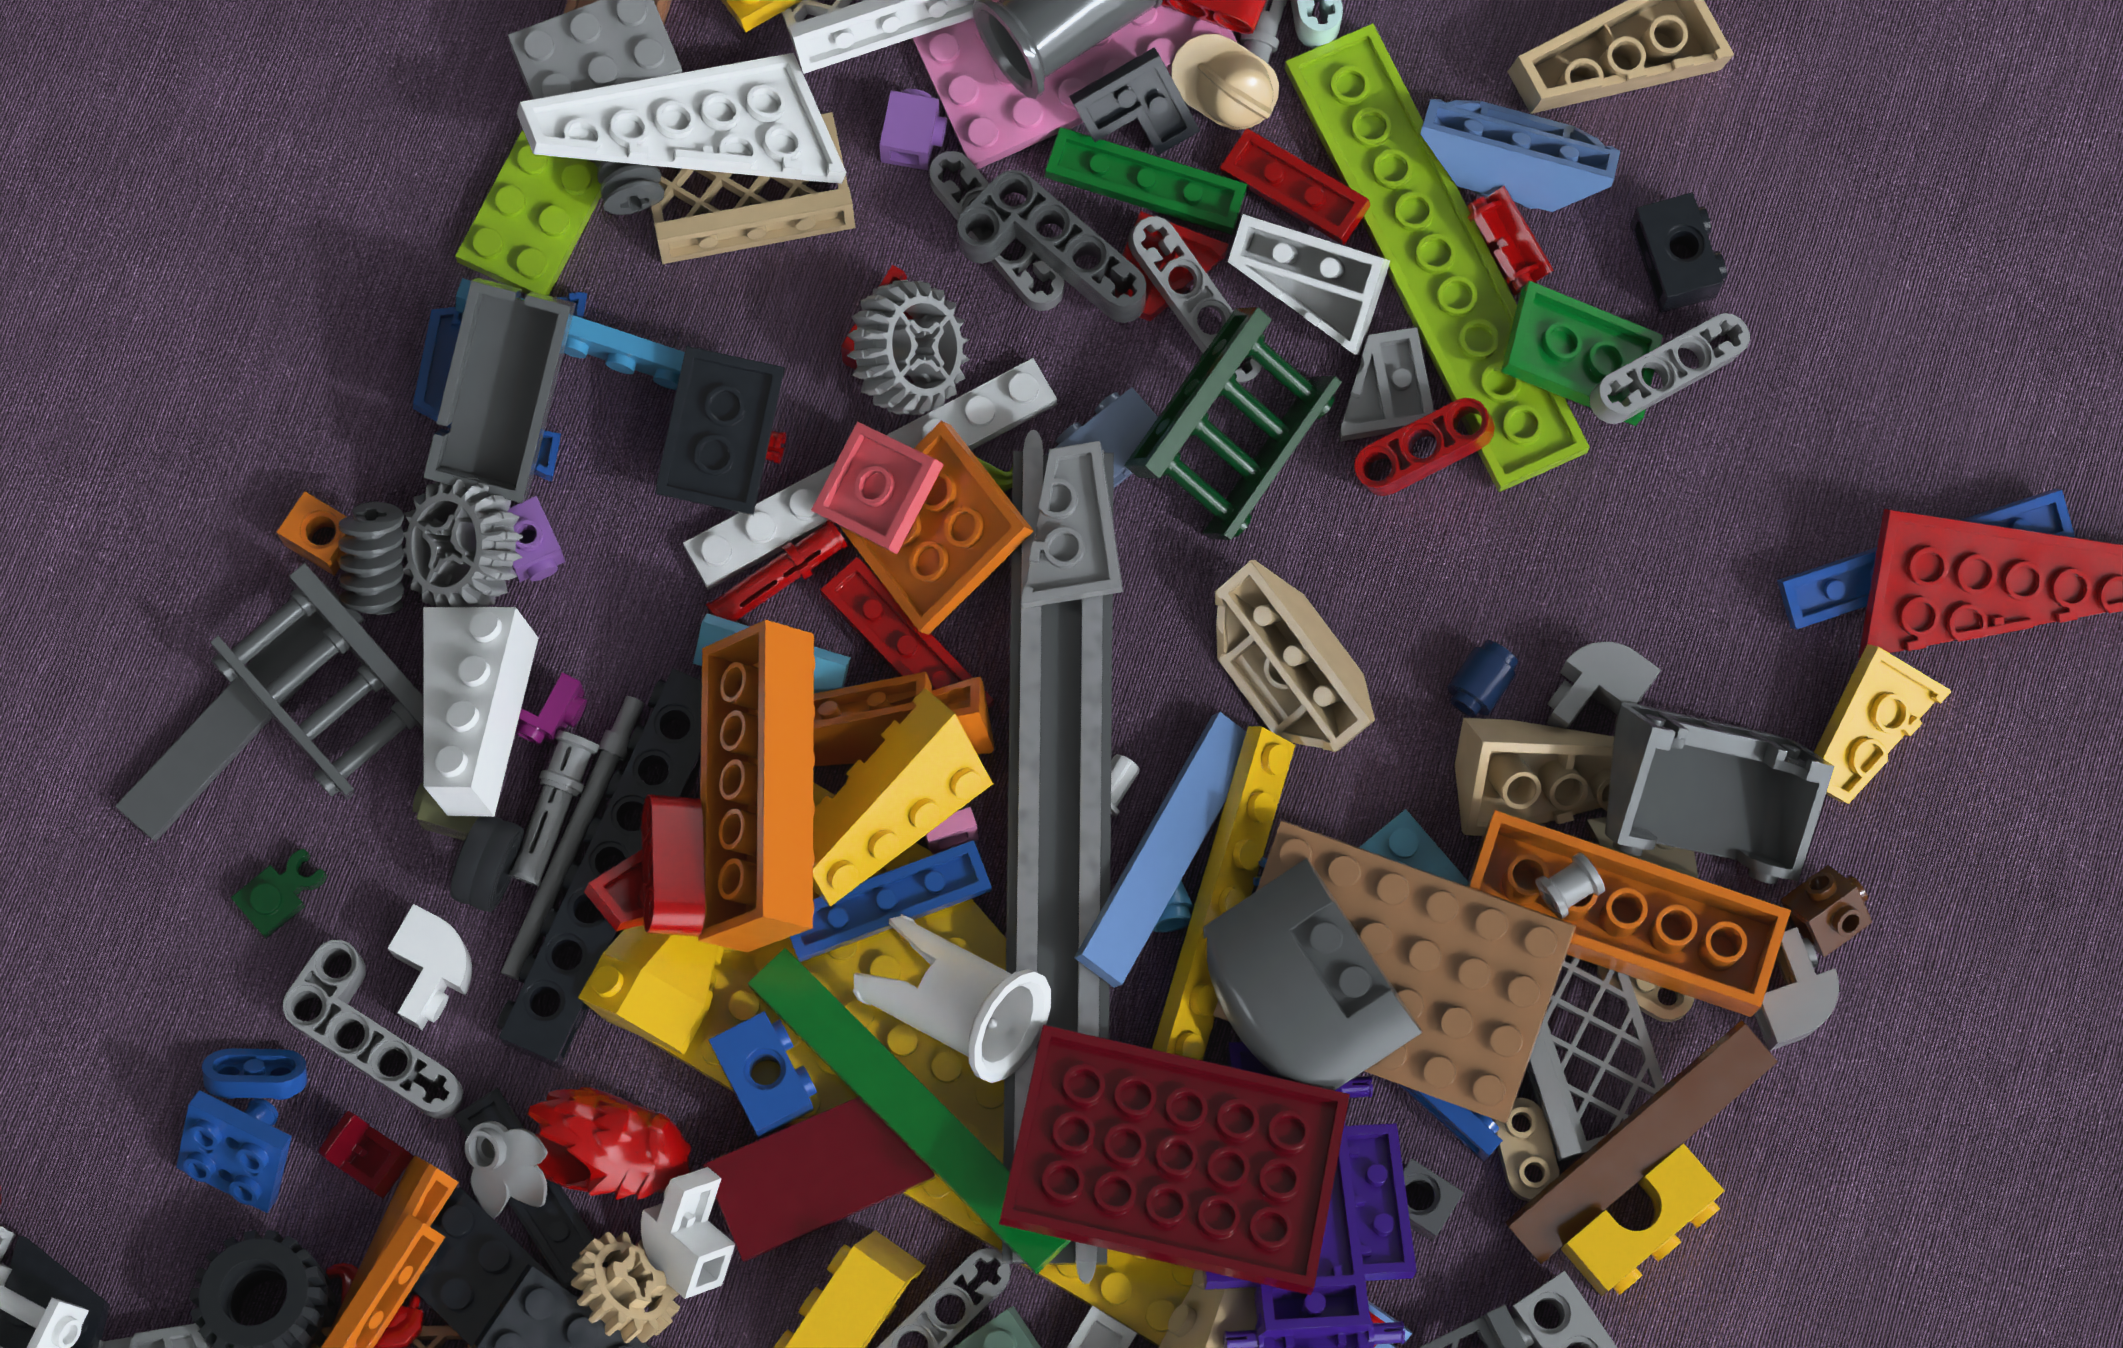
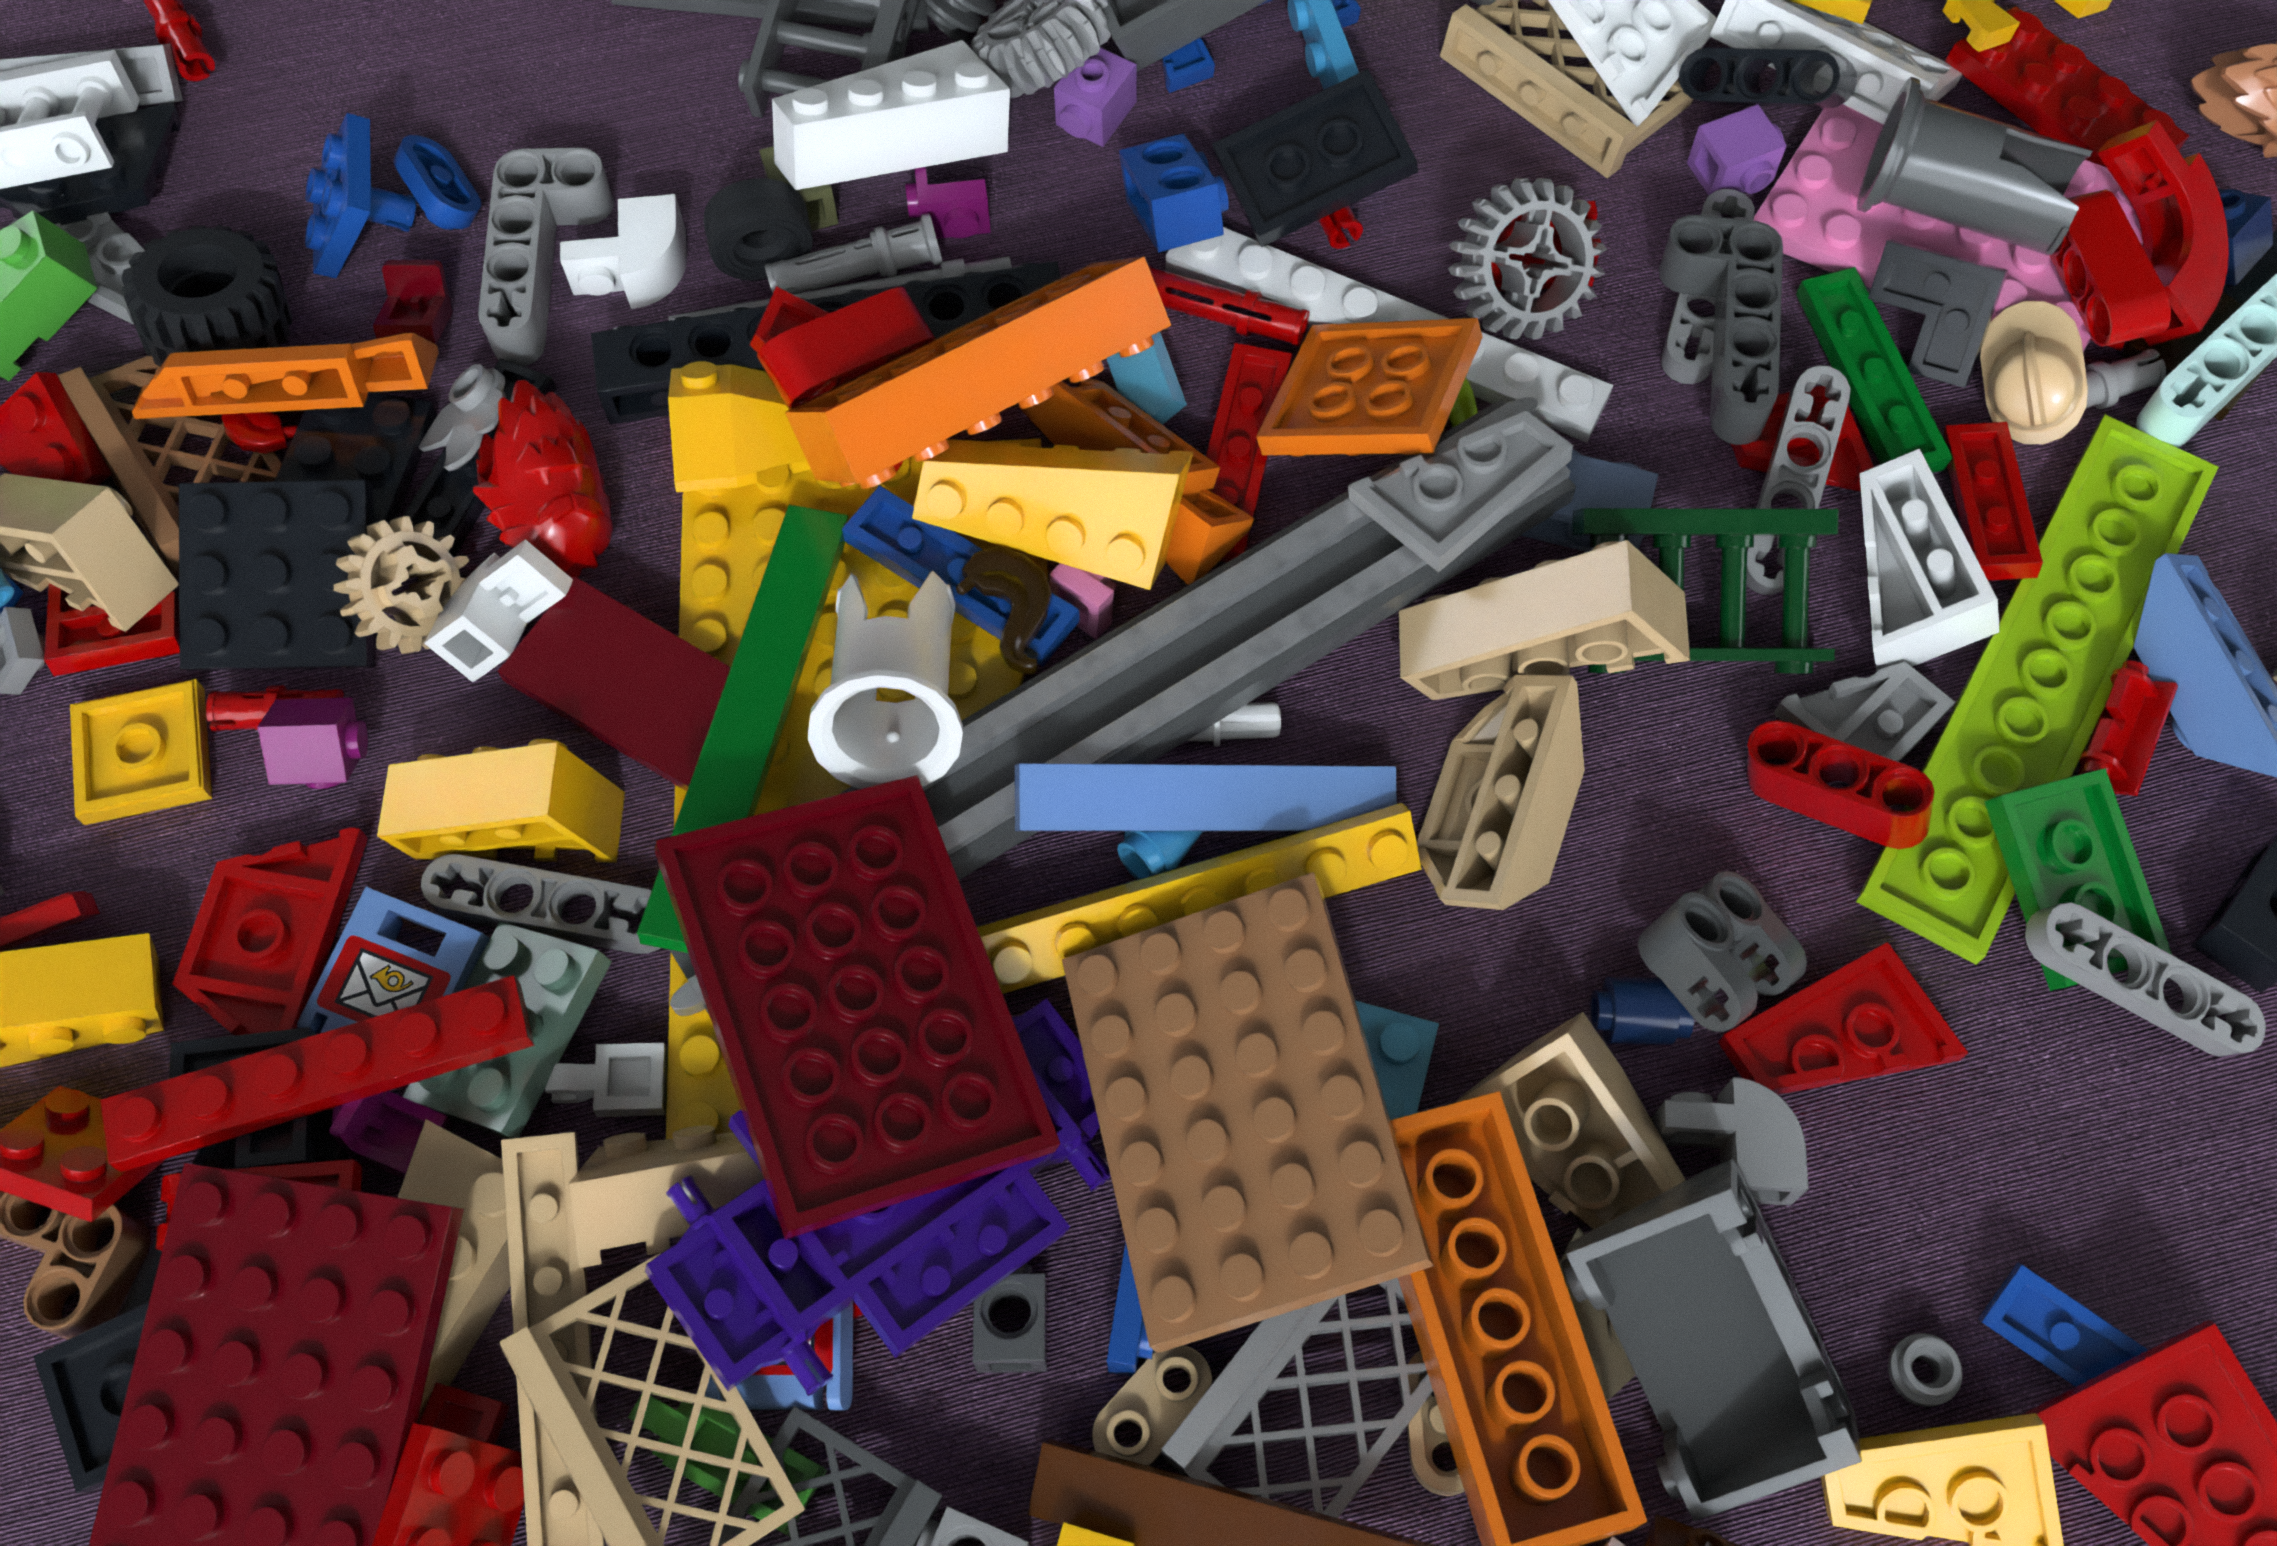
camera: 60 degrees right, 10 degrees down
(273, 898) = (622, 108): dark green plate -> none
(664, 554) = (1173, 192): none -> blue brick
(764, 1105) = (700, 539): blue brick -> none
(877, 487) = (1367, 311): coral plate -> none
(883, 48) = (1792, 85): none -> black beam
(936, 865) = (1023, 586): none -> dark brown piece
(1197, 552) = (1544, 622): none -> tan wedge
(1304, 984) = (1153, 1018): dark grey slope -> none
(1463, 604) = (1715, 939): none -> dark grey piece
(1570, 885) = (1474, 1226): light grey bush -> none
(1573, 566) = (1844, 1029): none -> red wing
(1806, 669) = (1941, 1358): none -> light grey plate

